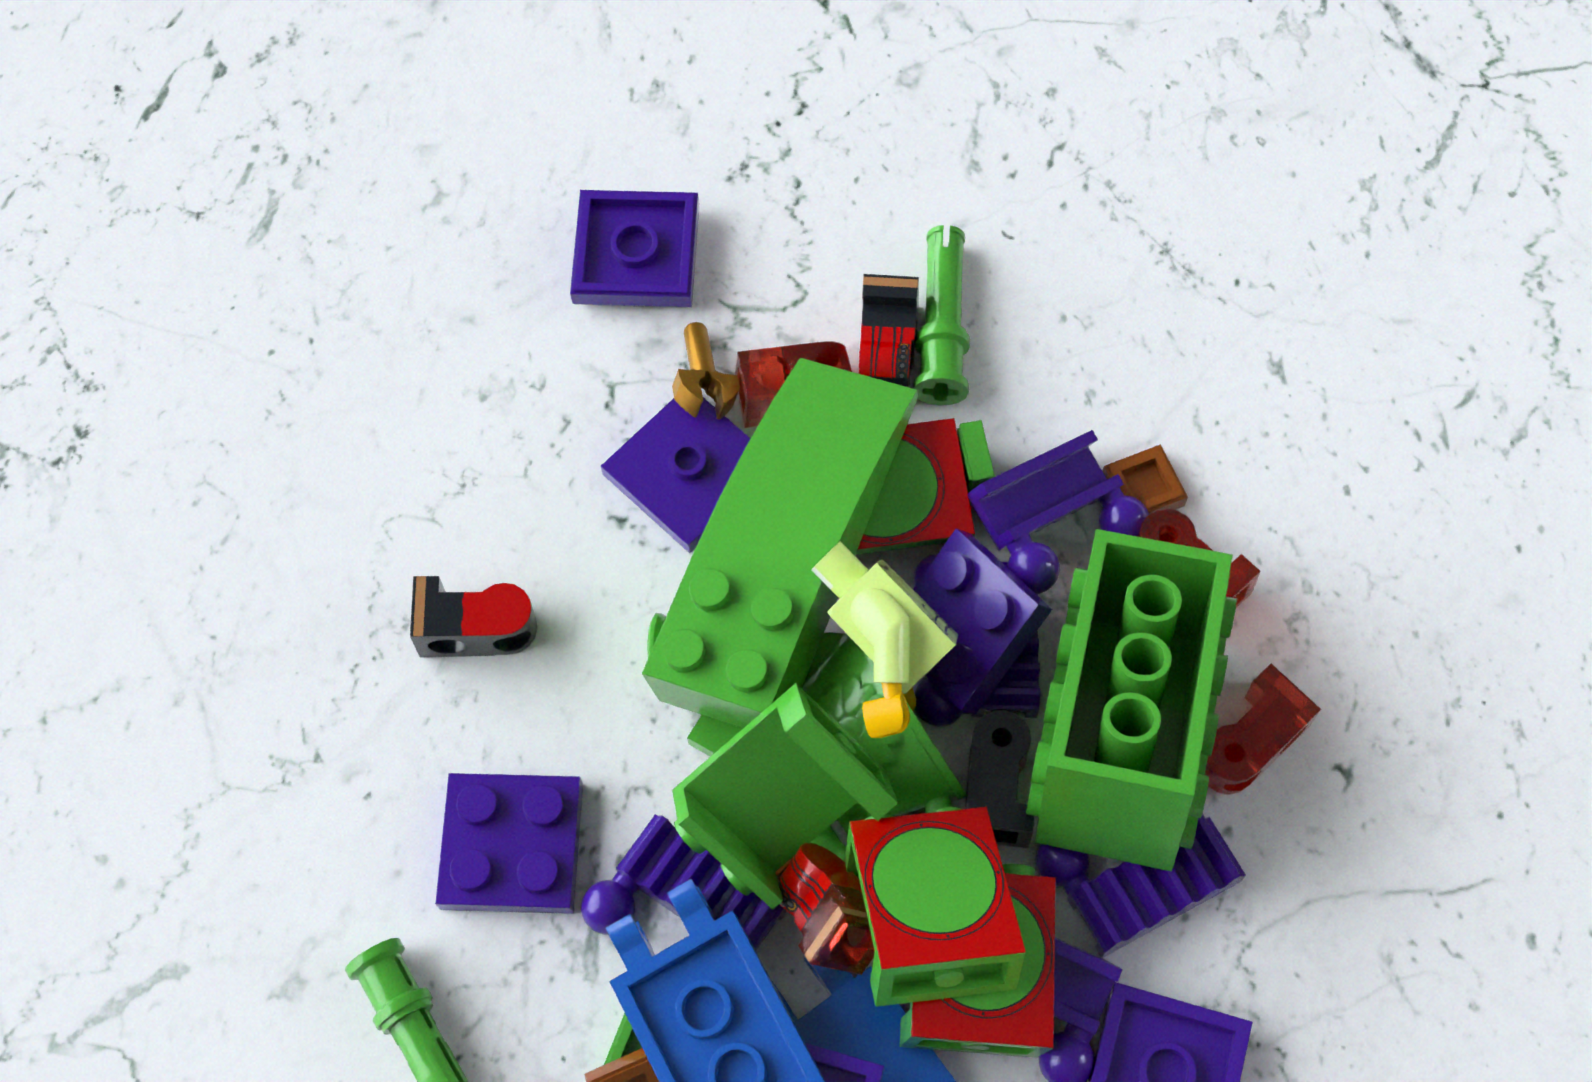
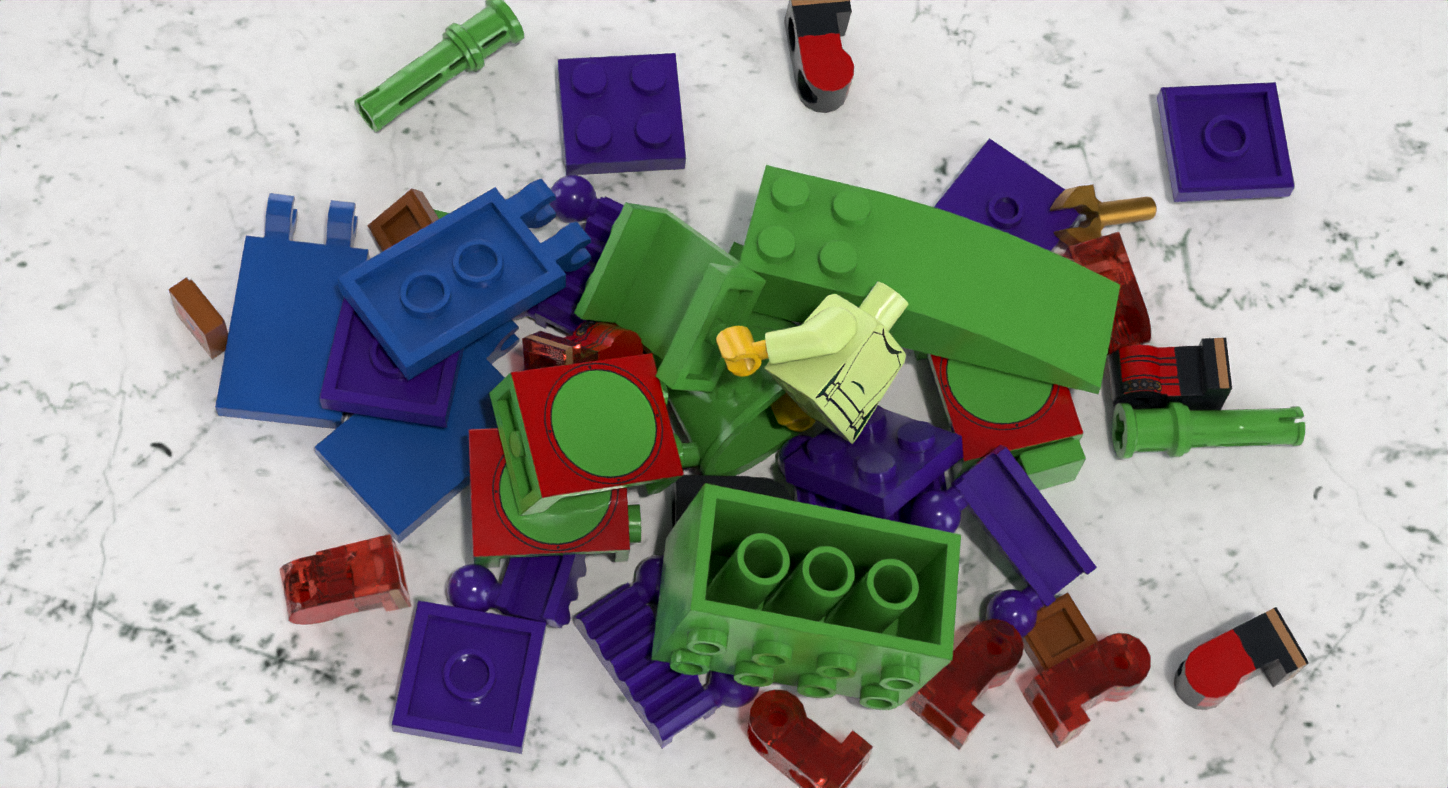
camera: 70 degrees right, 0 degrees up
(1180, 326) = (1237, 656): none -> leg
(1202, 463) = (1098, 673): none -> clear red leg

